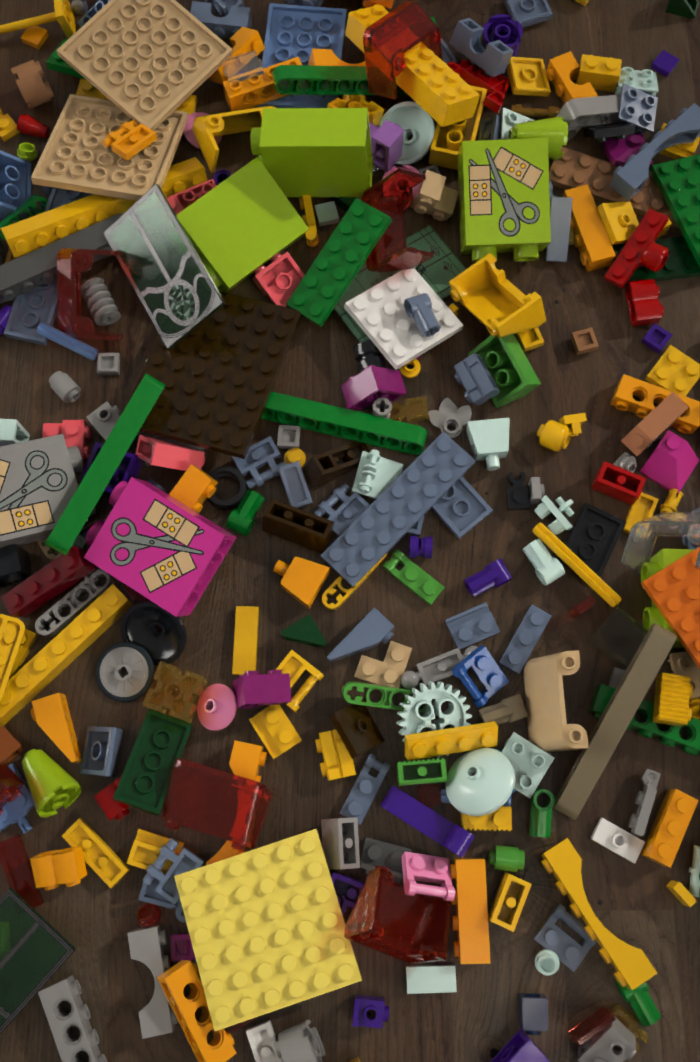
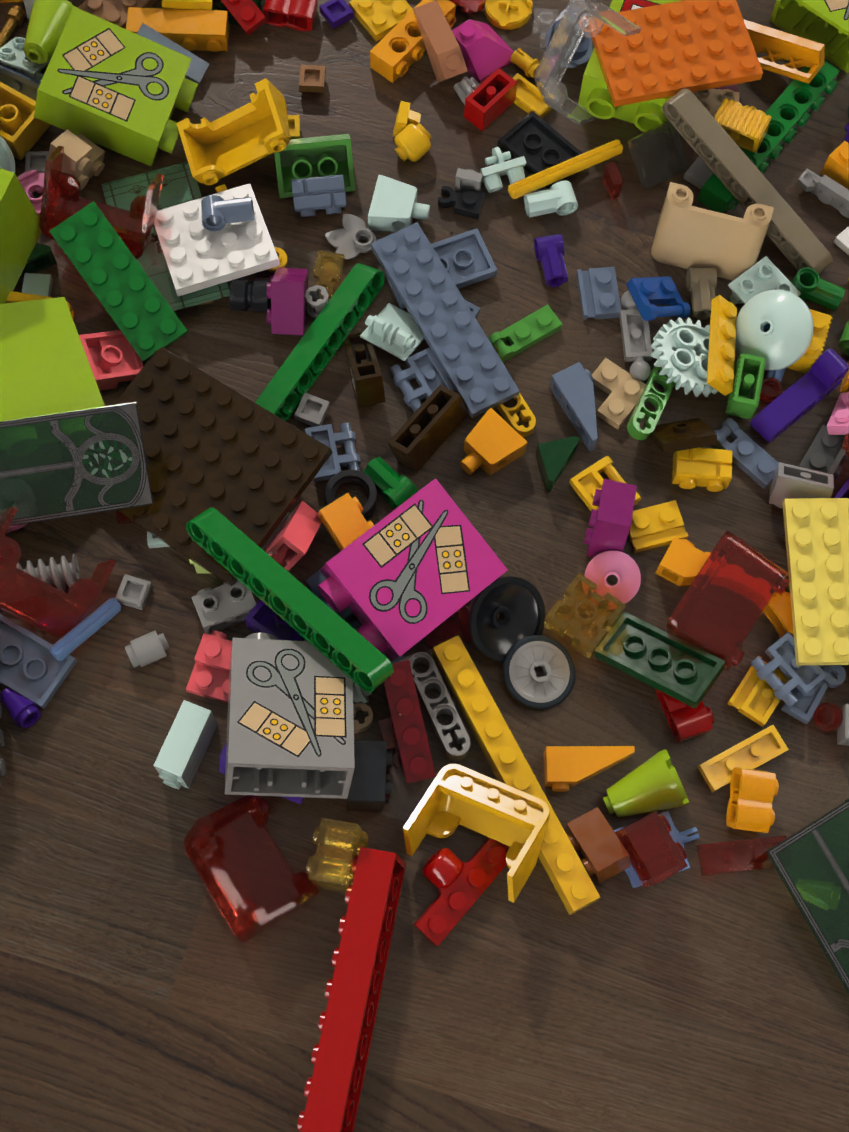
camera: 75 degrees left, 5 degrees down
(102, 751) = (627, 720): sand blue slope -> none
(245, 639) = (542, 528): yellow tile -> none
(294, 455) = (340, 412): yellow plate -> none
(295, 484) = (373, 419): sand blue tile -> none
(425, 547) = (493, 315): dark purple wheel -> none
(524, 639) = (628, 247): sand blue plate -> none

